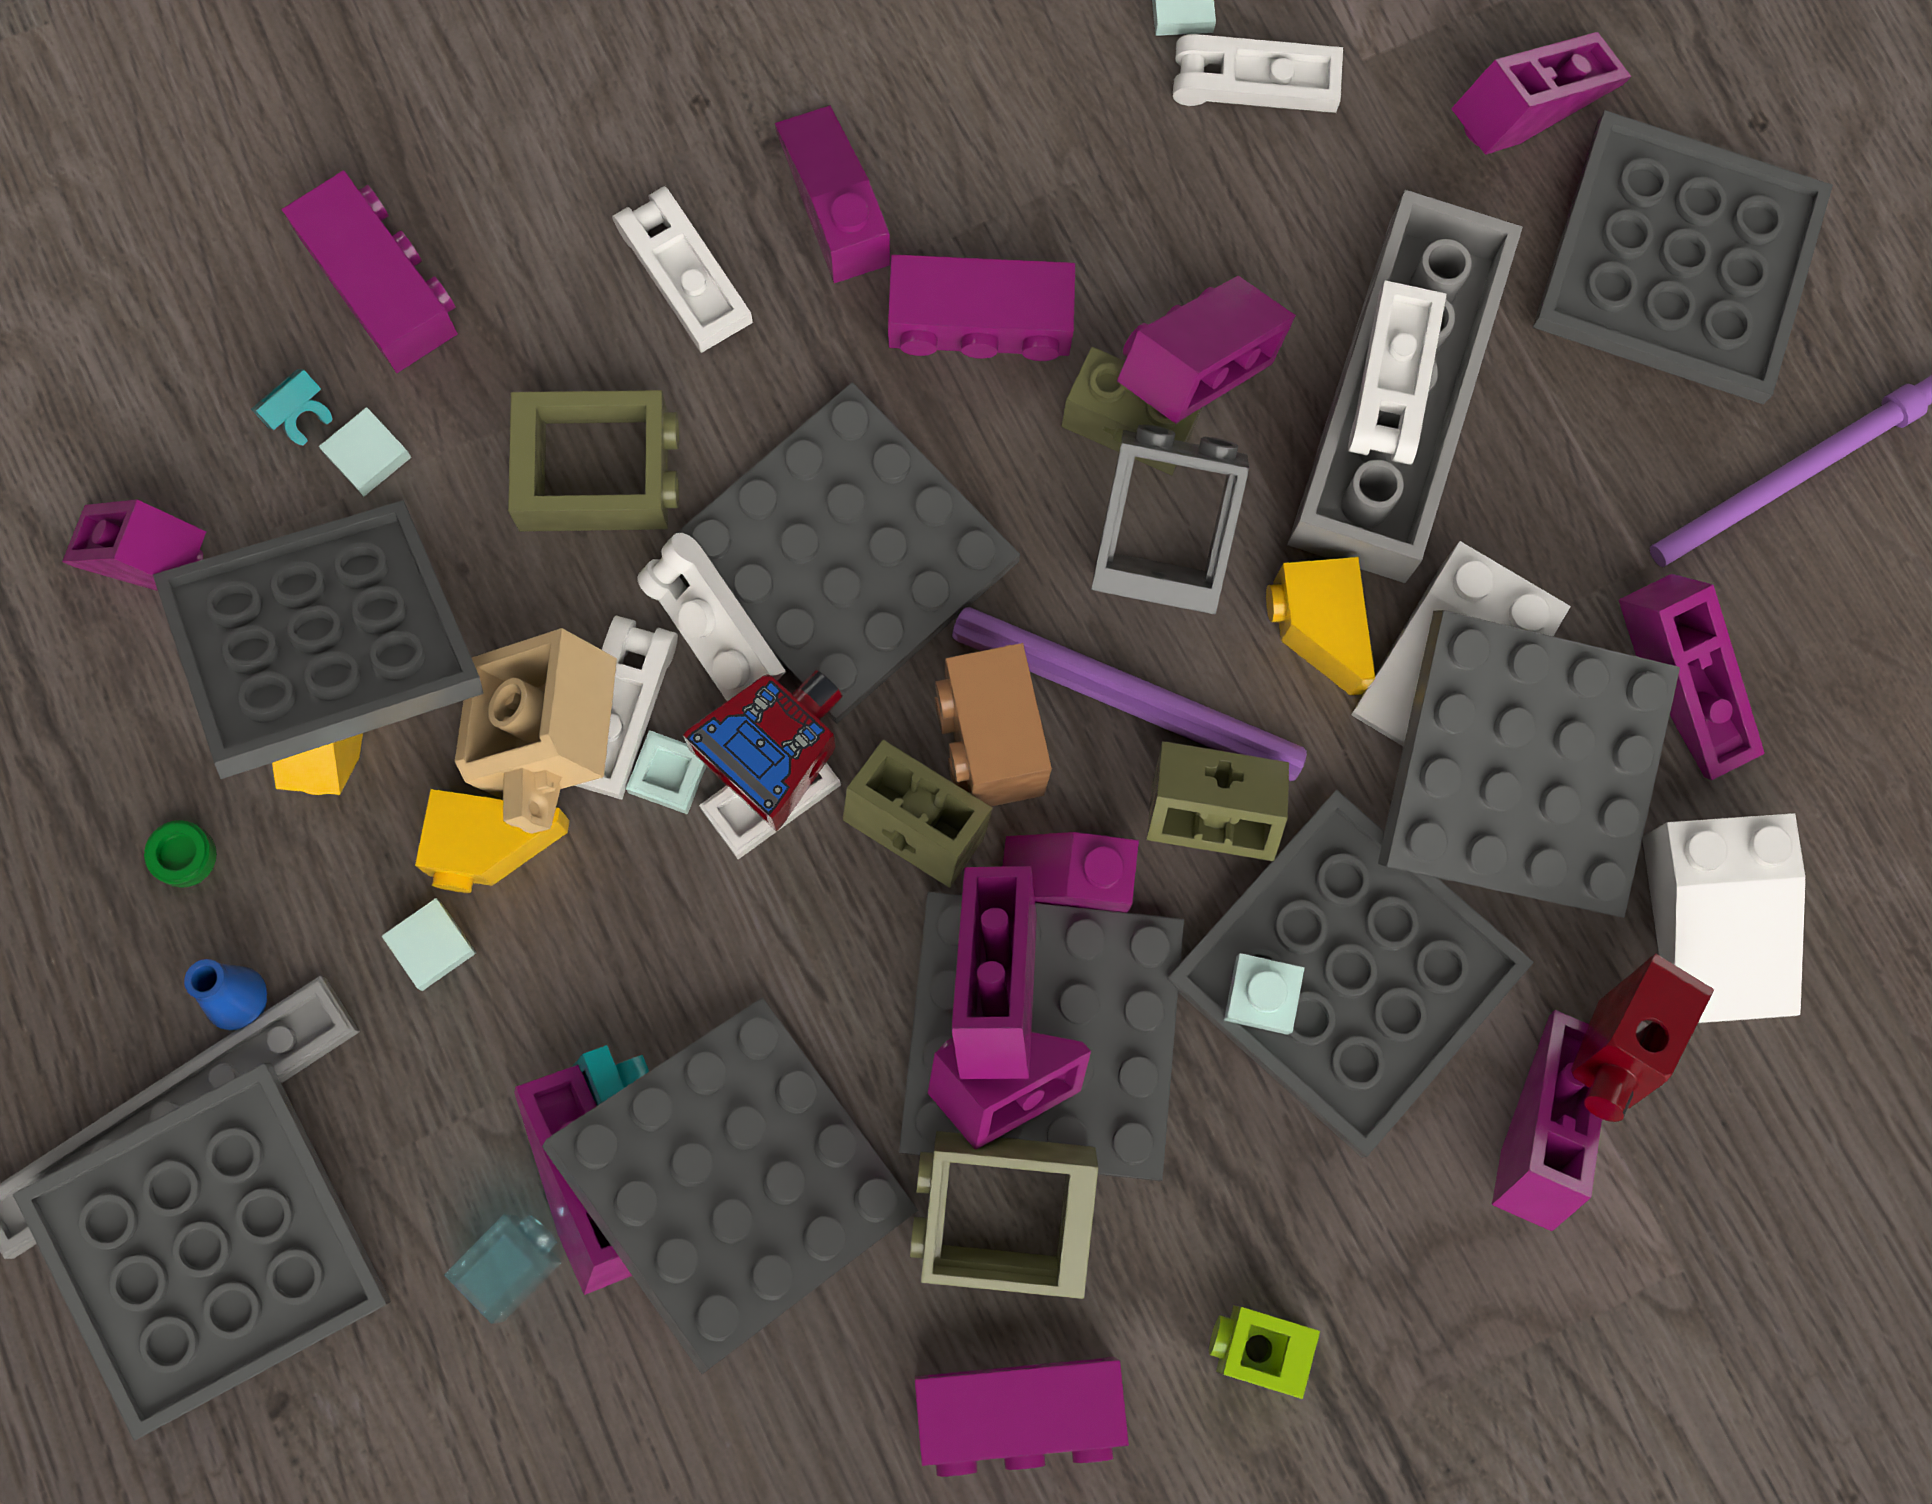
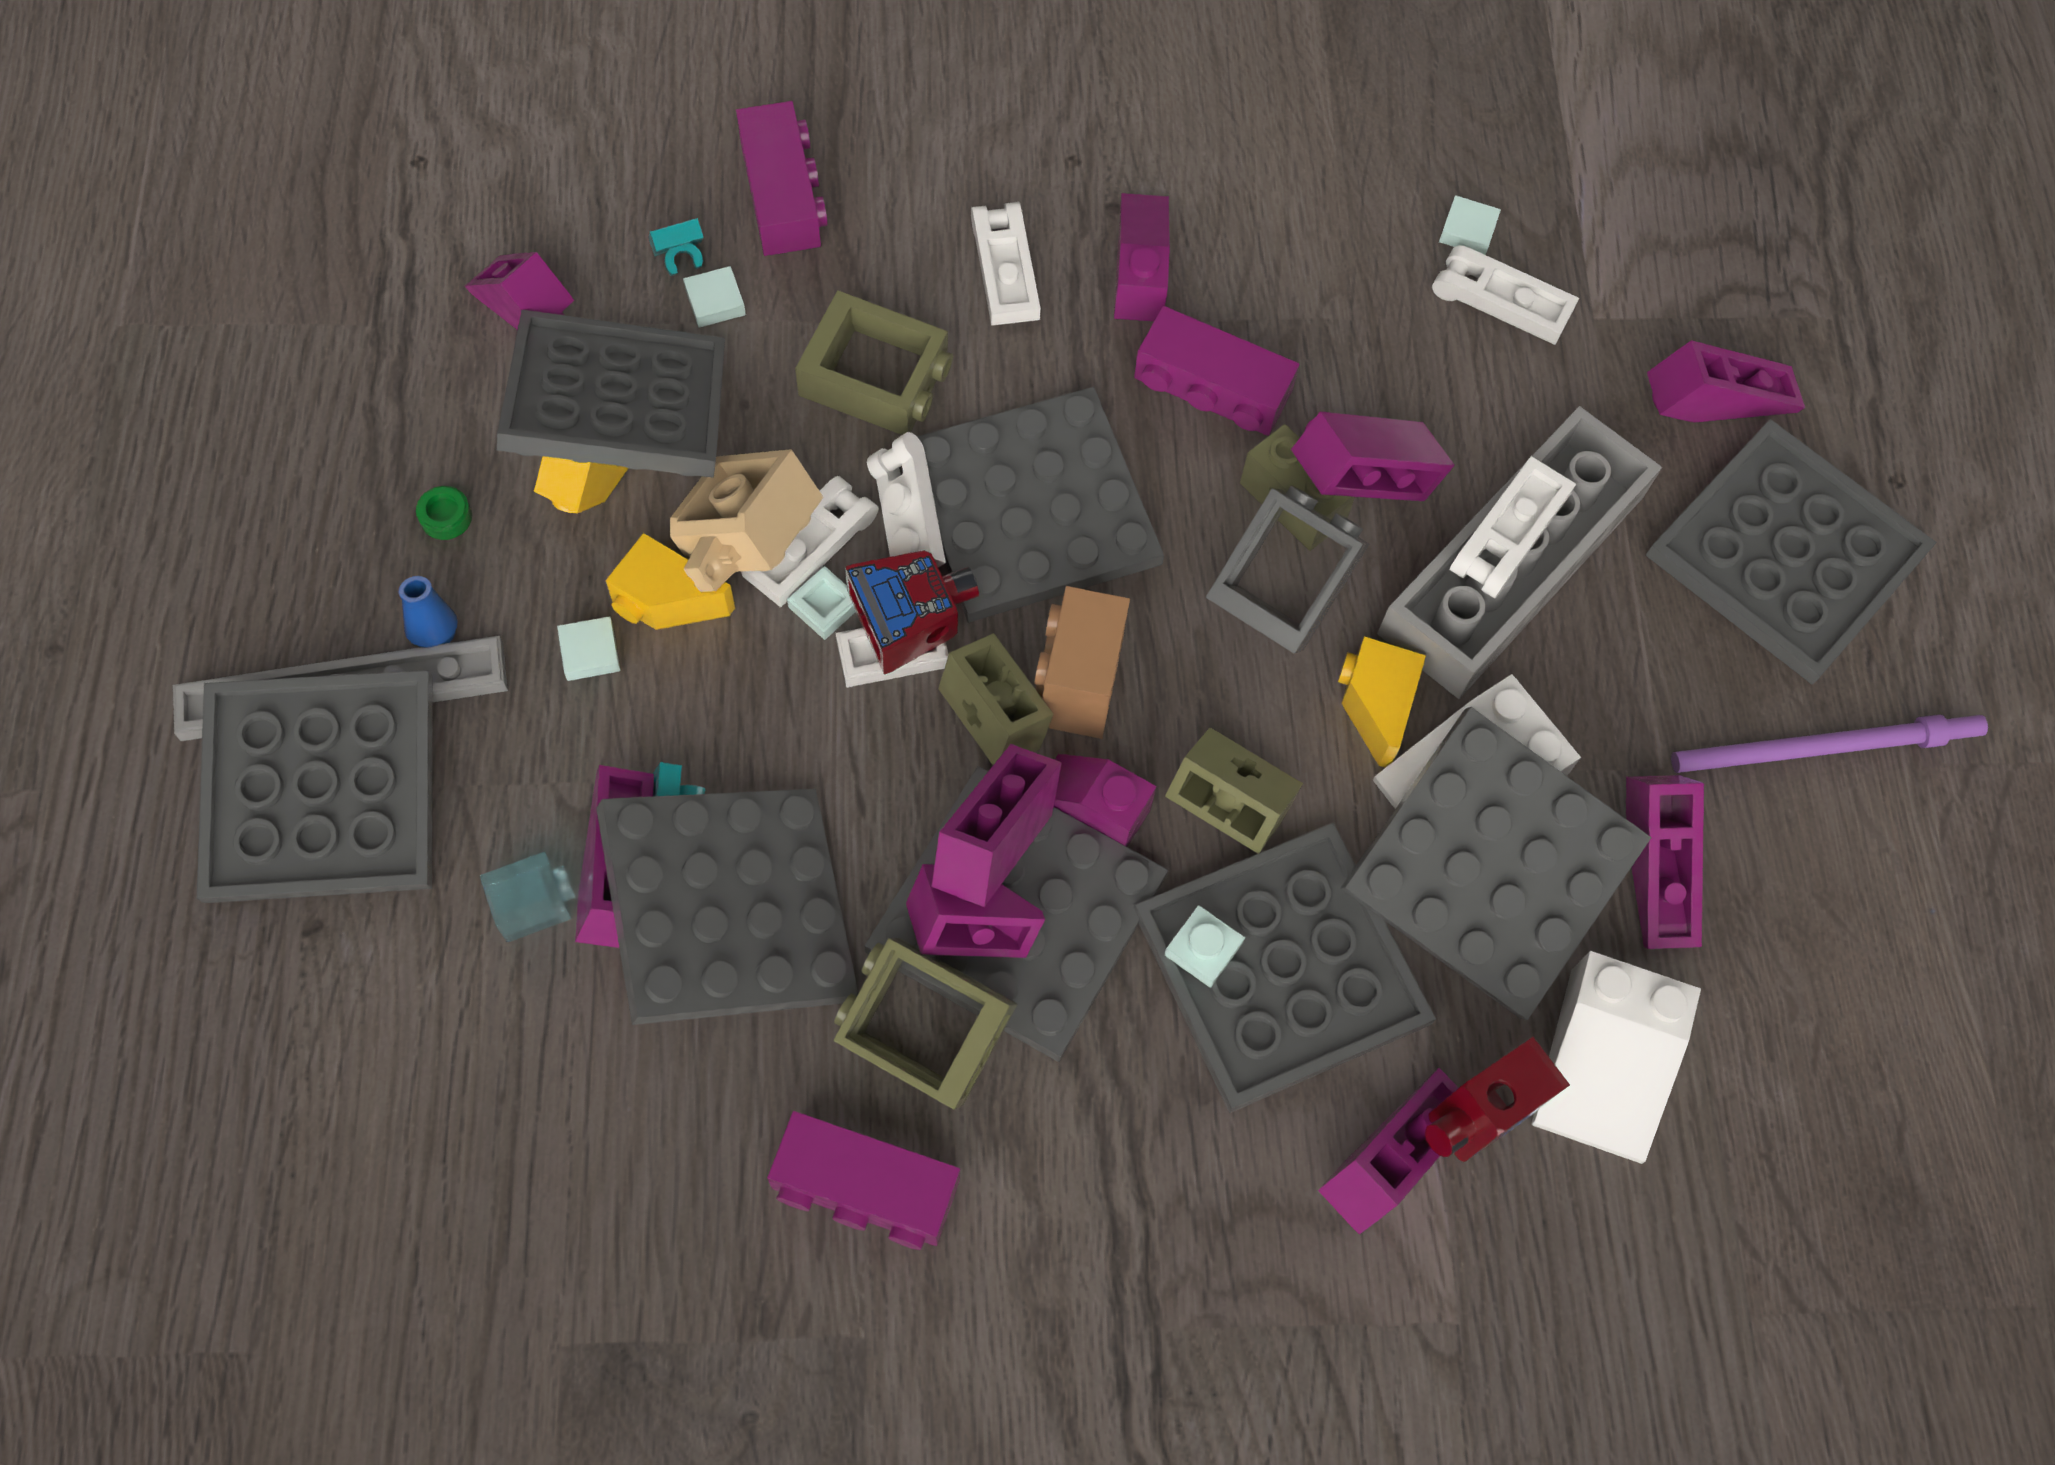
camera: 25 degrees right, 10 degrees down
(1128, 692) = (1208, 694): medium lavender axle -> none
(1288, 1354) = (1104, 1219): lime brick -> none

